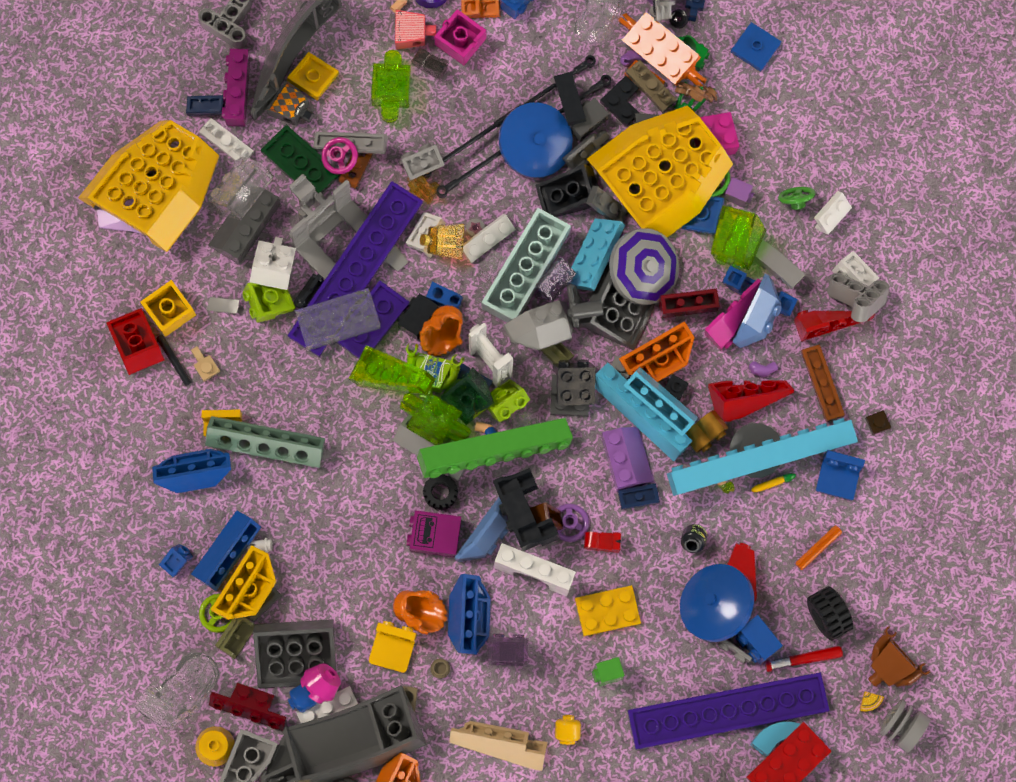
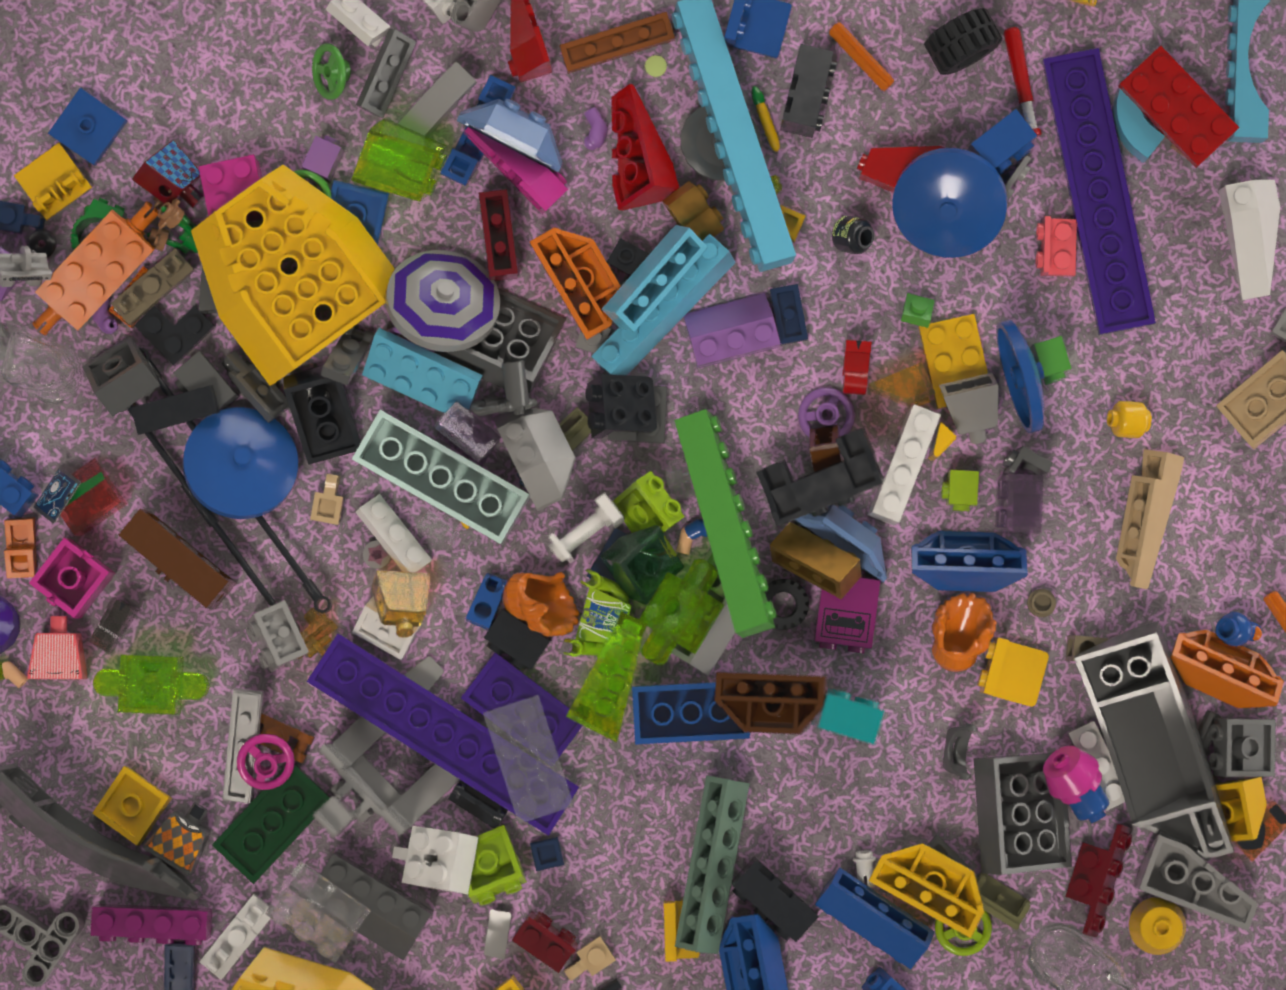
camera: 80 degrees left, 10 degrees up
(217, 335) = (546, 941): none -> dark red bracket
(240, 483) = (773, 900): none -> black wedge
(275, 337) = (547, 854): none -> dark blue tile
(326, 609) = (963, 735): none -> dark grey helmet
(362, 526) = (853, 719): none -> teal brick
(367, 428) = (681, 714): none -> blue brick
(373, 473) = (771, 700): none -> reddish brown wedge
(469, 510) = (816, 560): none -> pearl gold brick
(472, 100) = (177, 559): none -> reddish brown brick
(508, 196) = (327, 505): none -> tan plate
(512, 47) = (93, 499): none -> clear red slope
(514, 27) = (57, 494): none -> sticker
(518, 612) = (961, 489): none -> lime brick
(536, 658) = (1030, 462): none -> dark grey bracket
(550, 596) = (941, 441): none -> yellow slope
(576, 618) = (972, 405): none -> light grey torso
(589, 575) = (905, 387): none -> clear yellow slope
(591, 65) = (121, 376): none -> dark grey slope
(596, 649) = (1021, 375): none -> blue dish
(642, 584) = (917, 310): none -> bright green plate
(688, 682) = (1057, 247): none -> coral bracket
(702, 498) = (793, 221): none -> yellow tile
(719, 25) = (52, 181): none -> yellow hinge
(724, 94) = (170, 170): none -> torso
(793, 509) = (808, 91): none -> black wedge
(797, 232) = (386, 73): none -> dark grey plate
(807, 410) = (655, 66): none -> yellowish green piece

